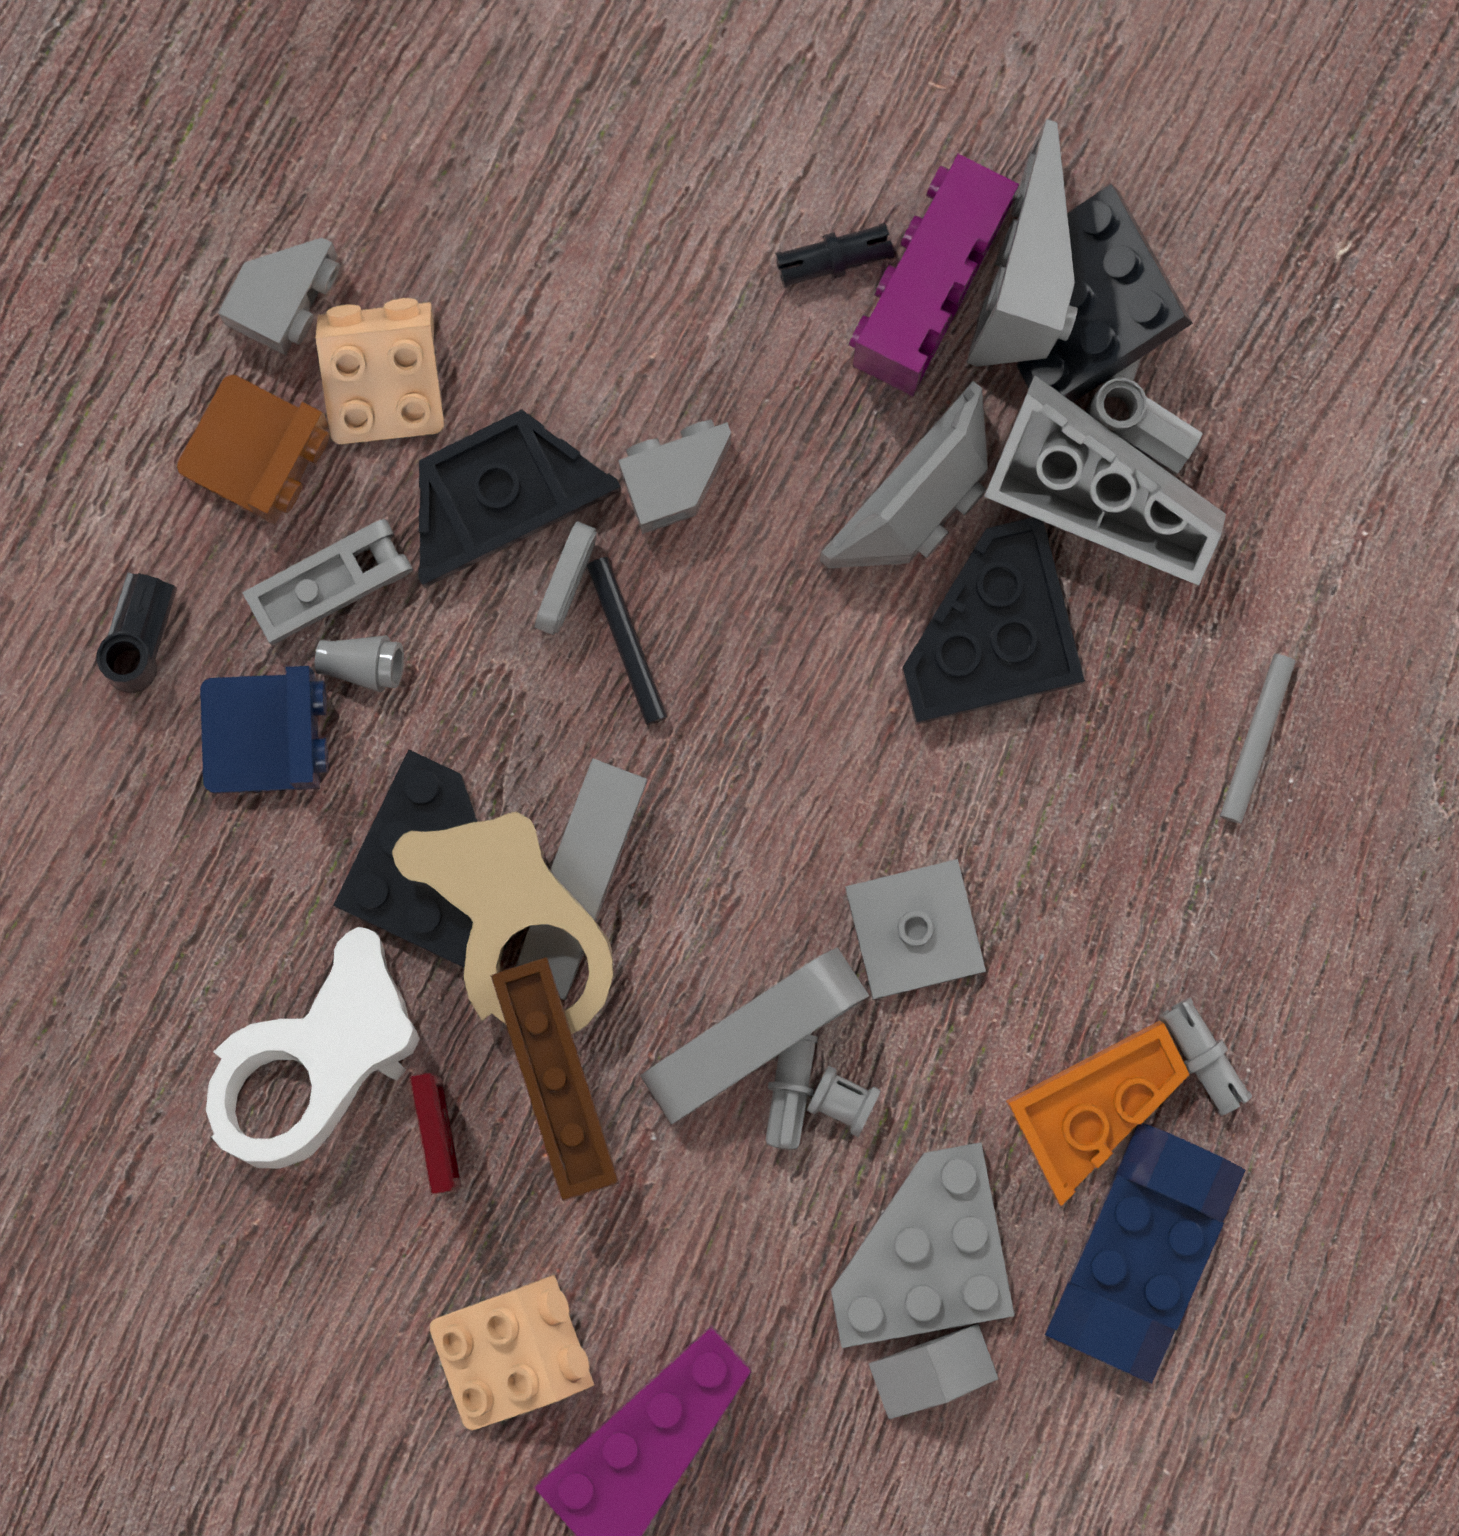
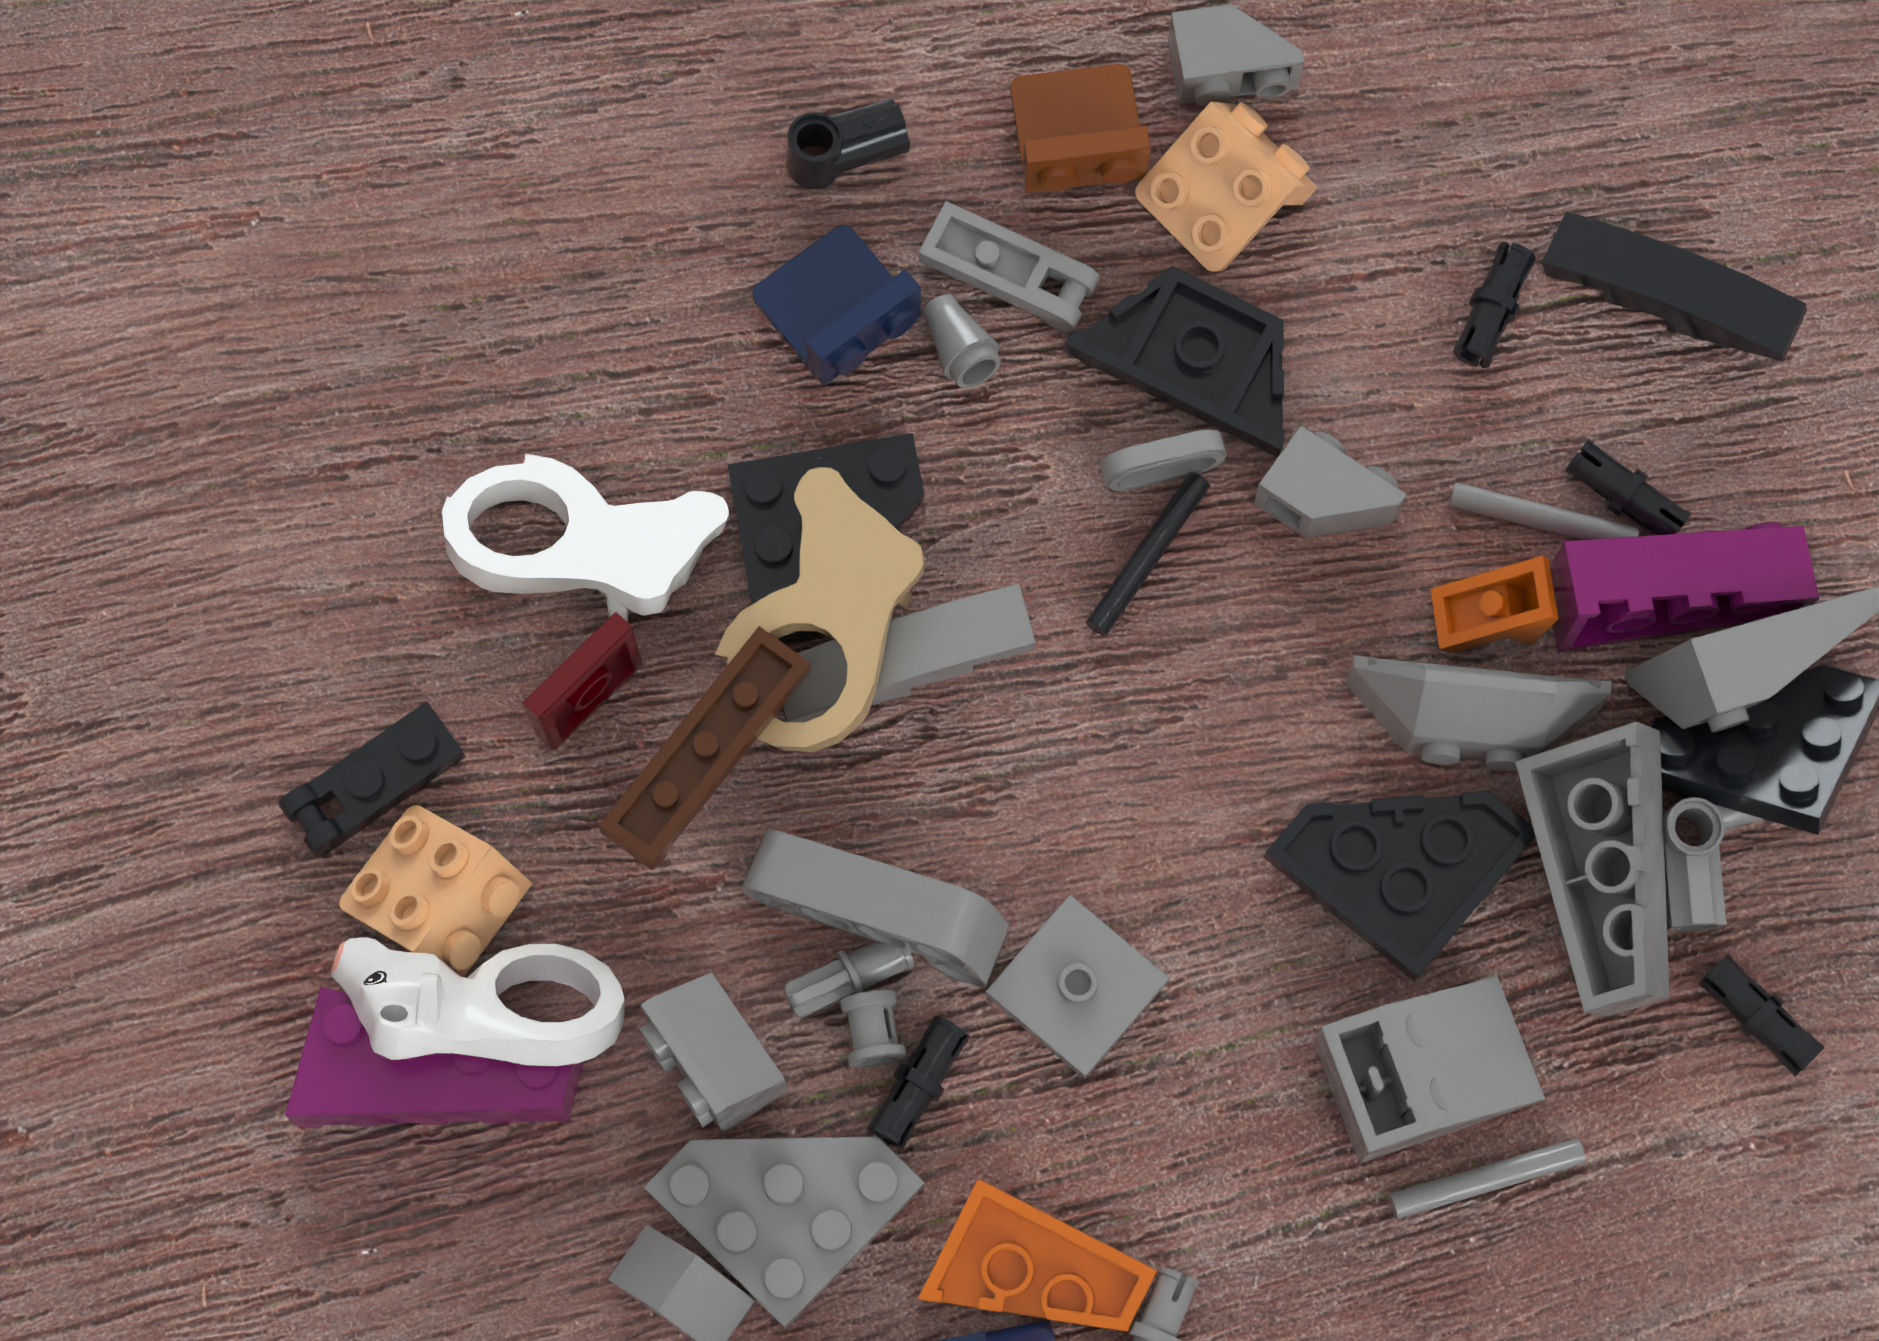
camera: 55 degrees right, 10 degrees down
(389, 1338) = (373, 779): none -> black plate
(610, 1422) = (423, 1008): none -> white animal
(620, 242) = (1494, 304): none -> black pin
(704, 100) = (1675, 284): none -> black slope
(783, 1230) = (714, 1050): none -> light grey slope
(807, 330) = (1536, 514): none -> light grey bar
(854, 420) = (1496, 605): none -> orange slope
(904, 1094) = (918, 1082): none -> black pin
(1154, 723) = (1426, 1067): none -> light grey slope
(1281, 457) = (1761, 1015): none -> black pin

